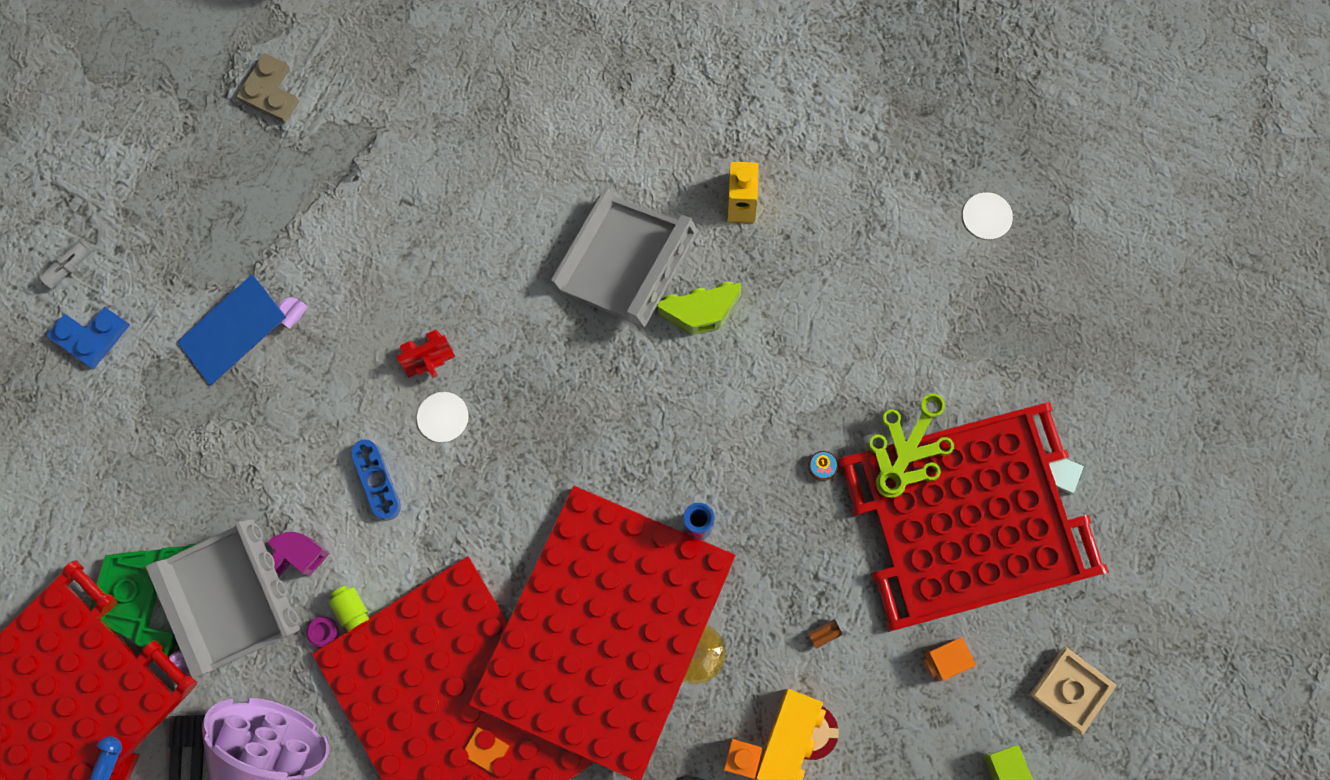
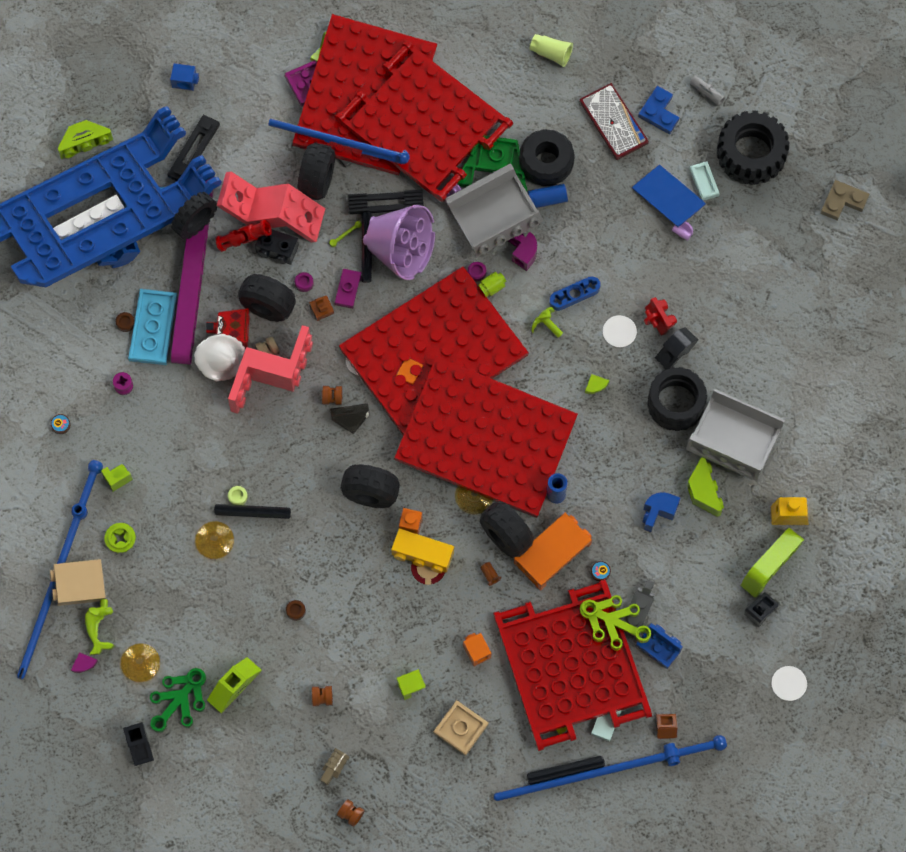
camera: 85 degrees right, 5 degrees down
(95, 405) = (614, 121): none -> tile
(116, 505) = (546, 173): none -> black tyre
(146, 179) = (757, 126): none -> black tyre
(208, 509) = (548, 195): none -> blue pin
(213, 278) = (704, 181): none -> light aqua tile
(414, 524) = (544, 318): none -> lime plant
(480, 333) = (675, 347): none -> black brick
(527, 456) = (596, 384): none -> lime tile
(556, 303) = (683, 378): none -> black tyre
(724, 373) = (662, 505): none -> blue brick
(765, 602) = (506, 529): none -> black tyre
(793, 533) = (553, 550): none -> orange panel
(820, 219) = (771, 562): none -> lime beam
(870, 409) = (644, 600): none -> dark grey hinge
(887, 240) = (761, 609): none -> black slope
(946, 380) = (661, 646): none -> blue bracket
(1055, 385) = (666, 726): none -> dark orange slope
(1102, 381) = (671, 755): none -> blue bar
(1130, 534) = (565, 770): none -> black axle

